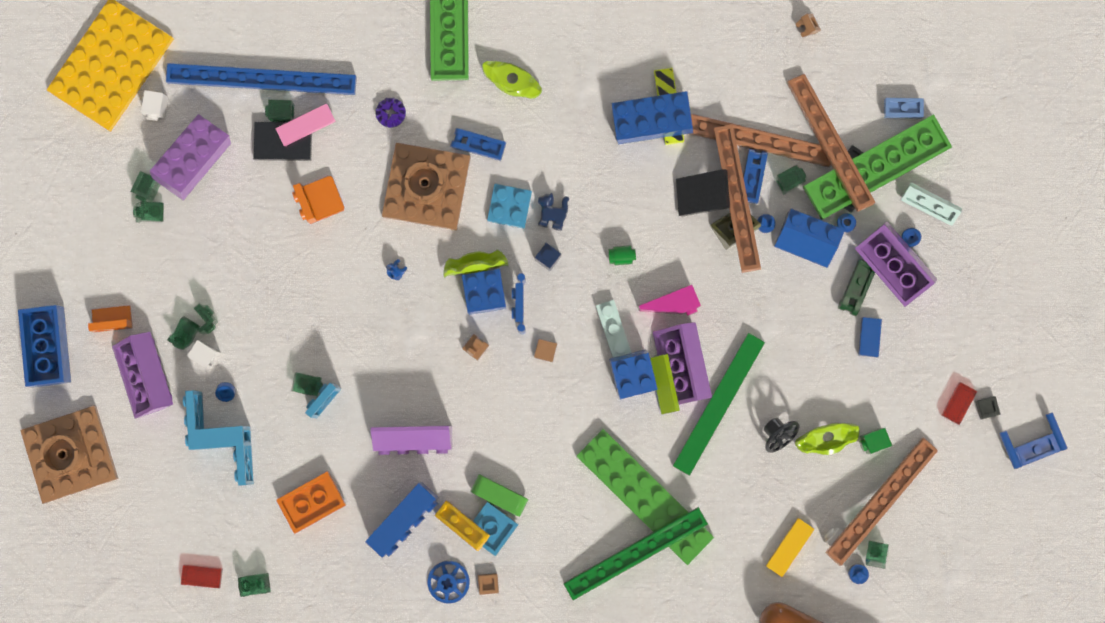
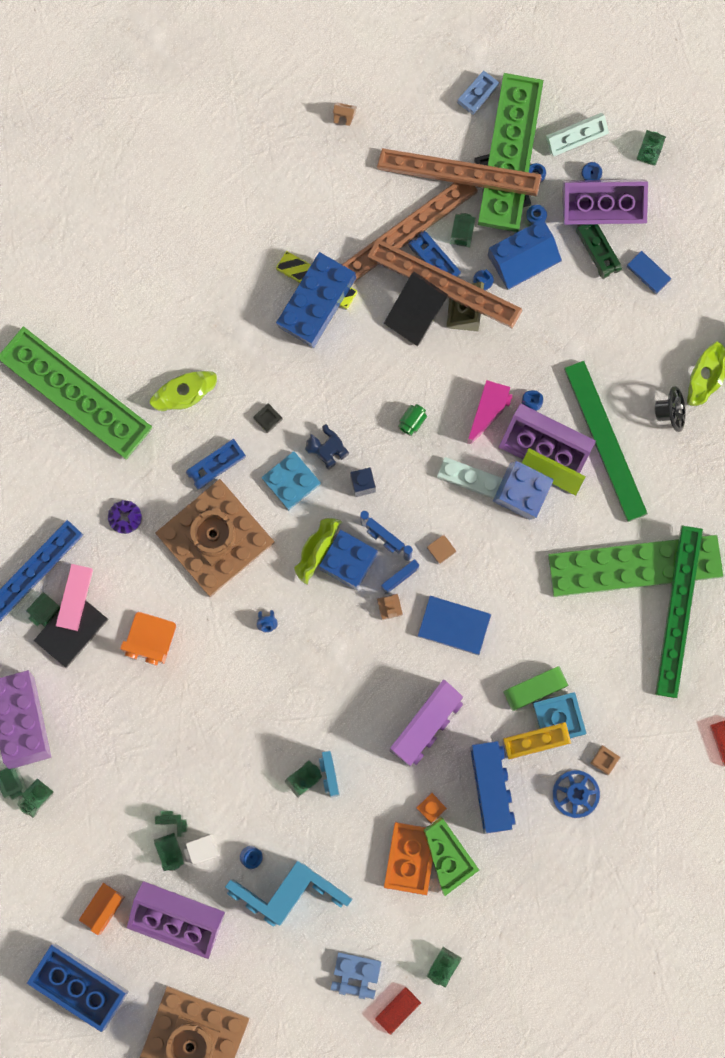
camera: 50 degrees left, 5 degrees down
(208, 526) = (356, 968): none -> medium blue plate
(332, 528) = (449, 857): none -> bright green wing
(358, 488) = (431, 808): none -> orange plate
(498, 402) = (454, 625): none -> blue tile
(502, 337) = (400, 576): none -> blue tile
(541, 153) = (267, 418): none -> pearl dark grey tile
(706, 328) = (532, 399): none -> blue tile
(883, 197) = (536, 167): none -> blue plate
(966, 265) = (651, 147): none -> clear green bracket

